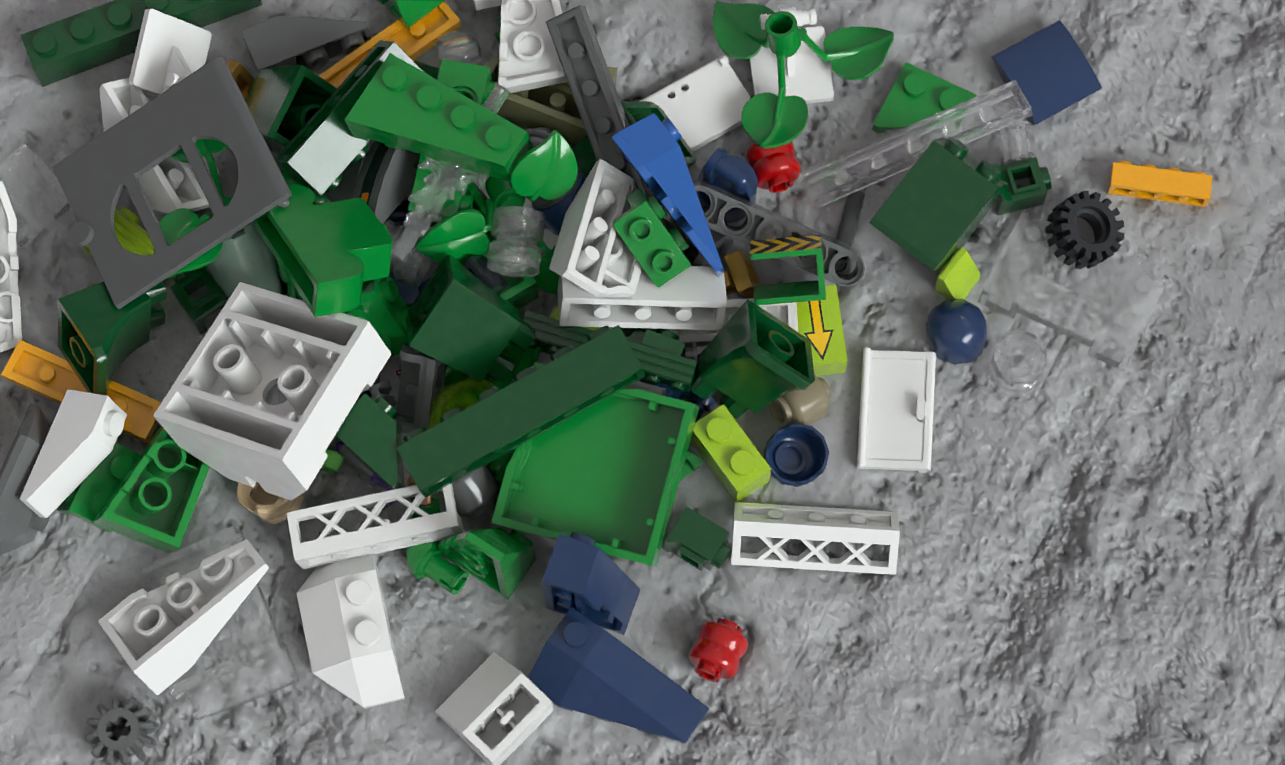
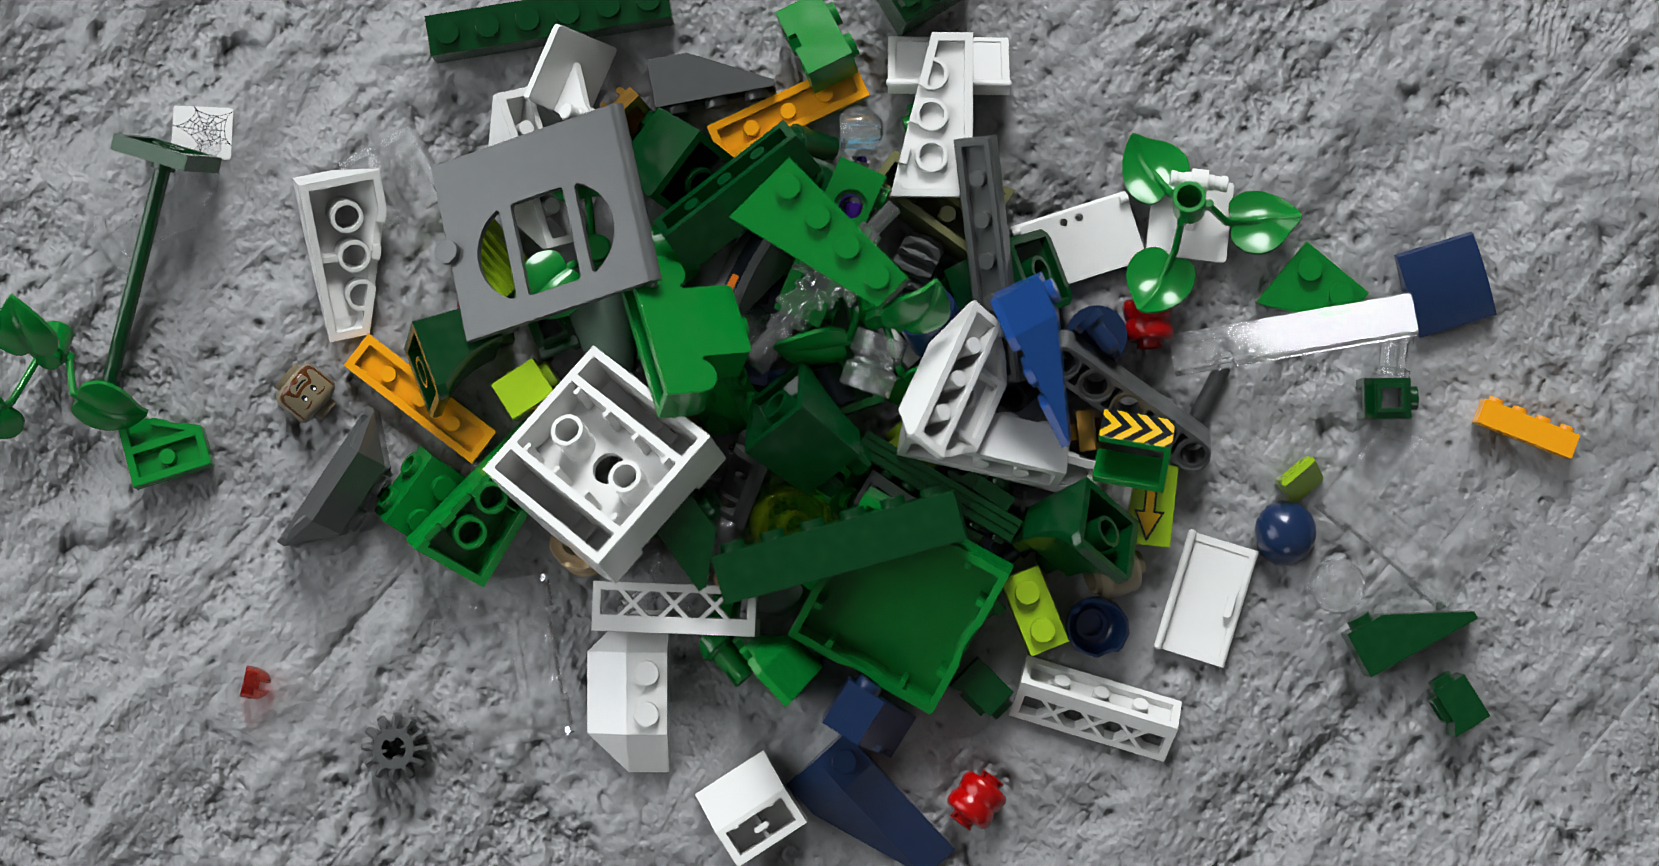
camera: 15 degrees right, 15 degrees up
(74, 447) = (403, 463): white slope -> none
(173, 624) = (468, 654): white wedge -> none
(177, 343) = (526, 388): none -> lime brick
(650, 240) = (1007, 397): green bracket -> none
(939, 202) = (1300, 411): dark green slope -> none
(1089, 398) = (1392, 637): none -> dark green slope
(1100, 219) = (1458, 463): black tyre -> none
(1165, 449) = (1456, 703): none -> dark green window

